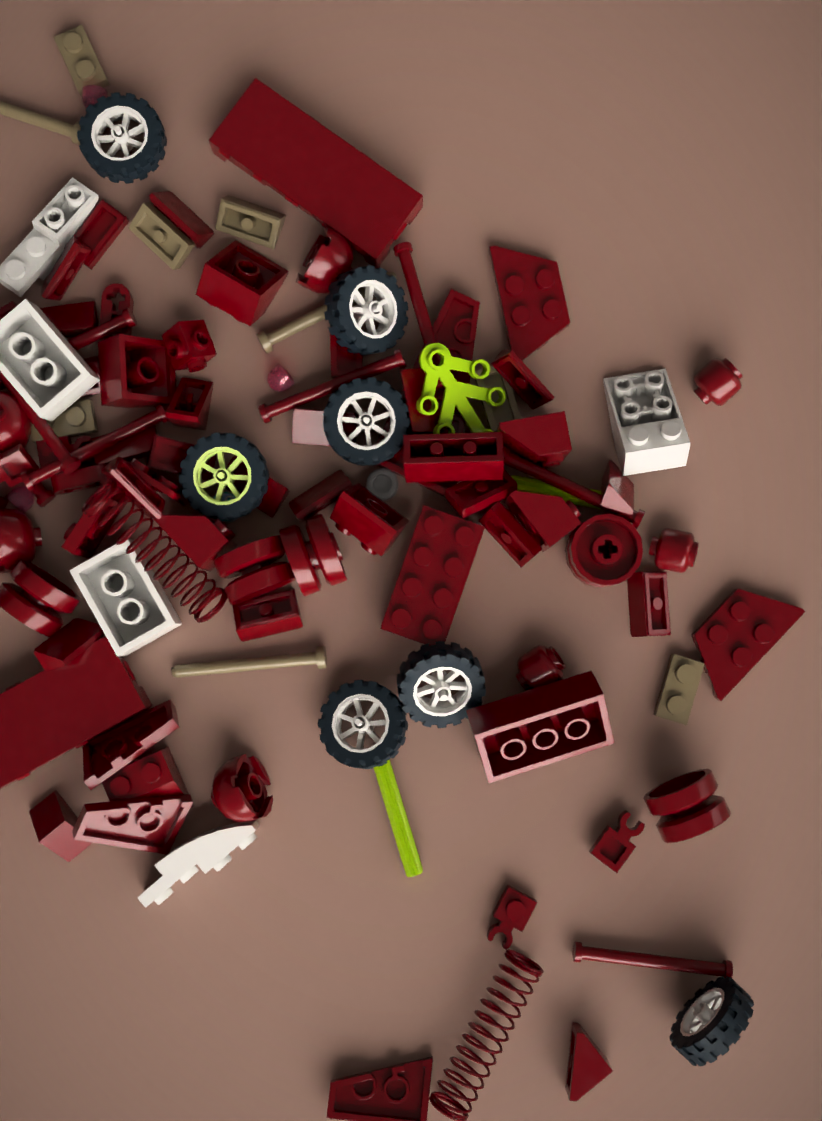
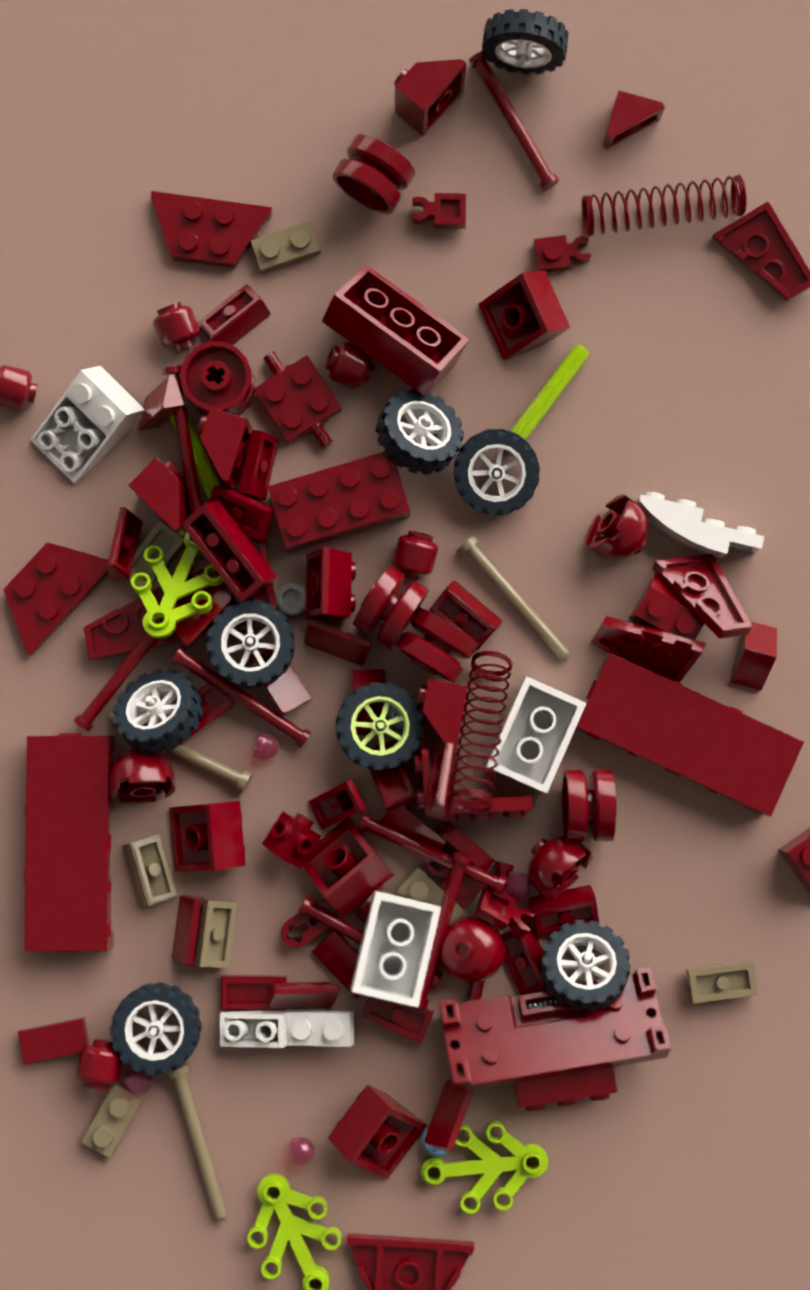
camera: 125 degrees left, 0 degrees up
(67, 643) = (605, 751): dark red slope -> none
(127, 75) = (99, 1065): none -> dark red head
(174, 58) = (53, 1040): none -> dark red tile
(344, 609) = (415, 554): none -> dark red head
(479, 846) = (524, 314): none -> dark red slope
(543, 606) = (298, 399): none -> dark red plate
(727, 905) = (428, 91): none -> dark red slope

